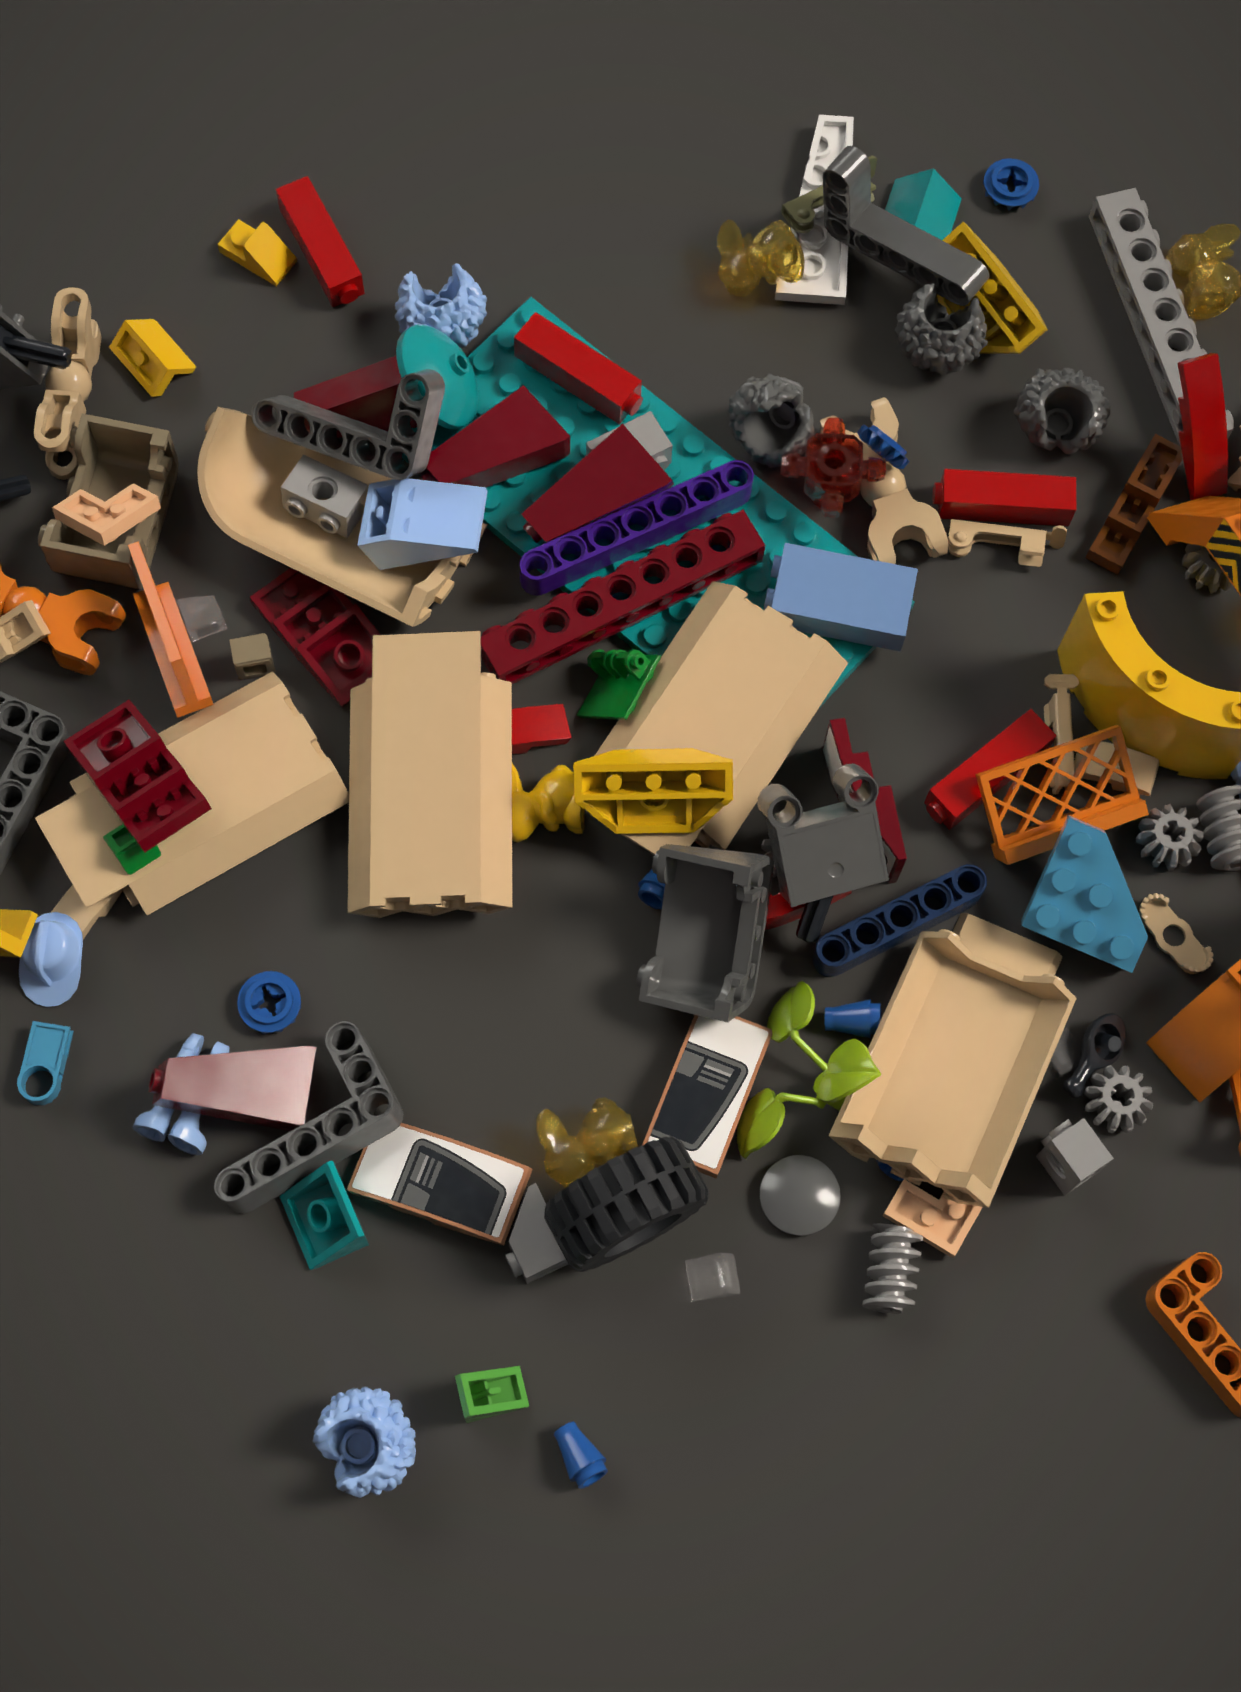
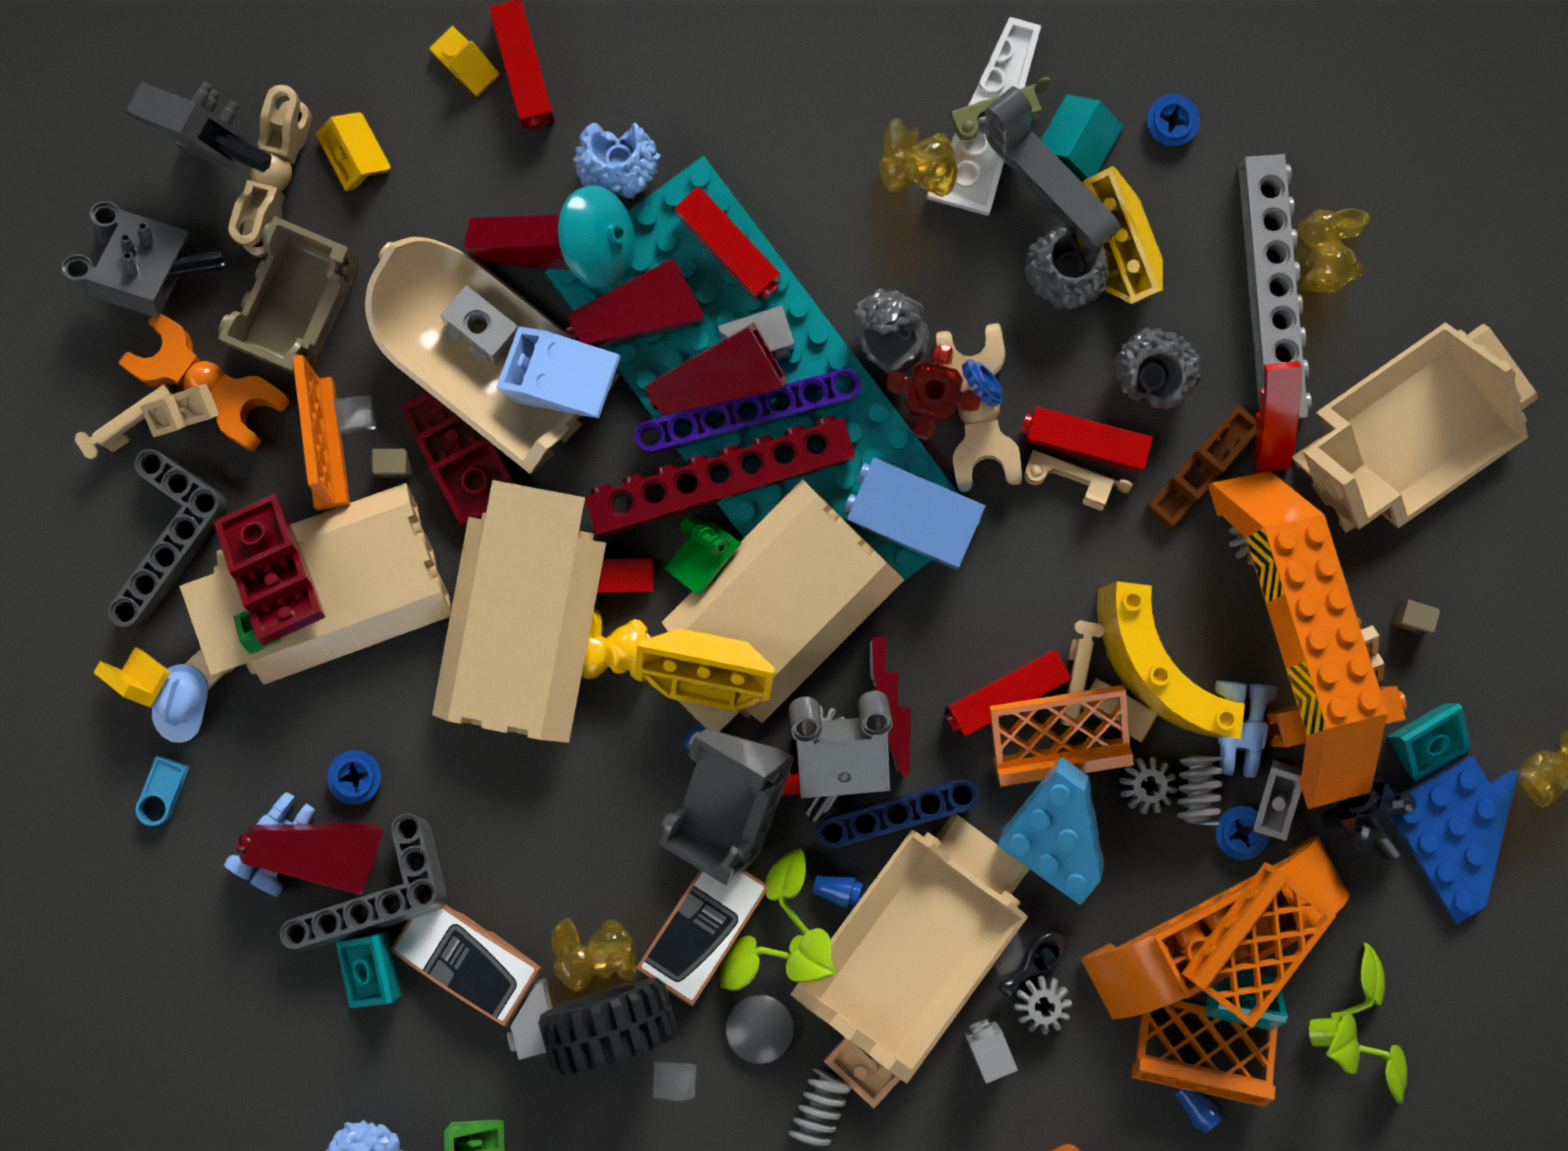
camera: 15 degrees right, 15 degrees up
(106, 519) = (285, 319): light nougat plate -> none
(358, 435) = (537, 305): dark grey beam -> none
(1156, 917) = (1138, 890): tan piece -> none

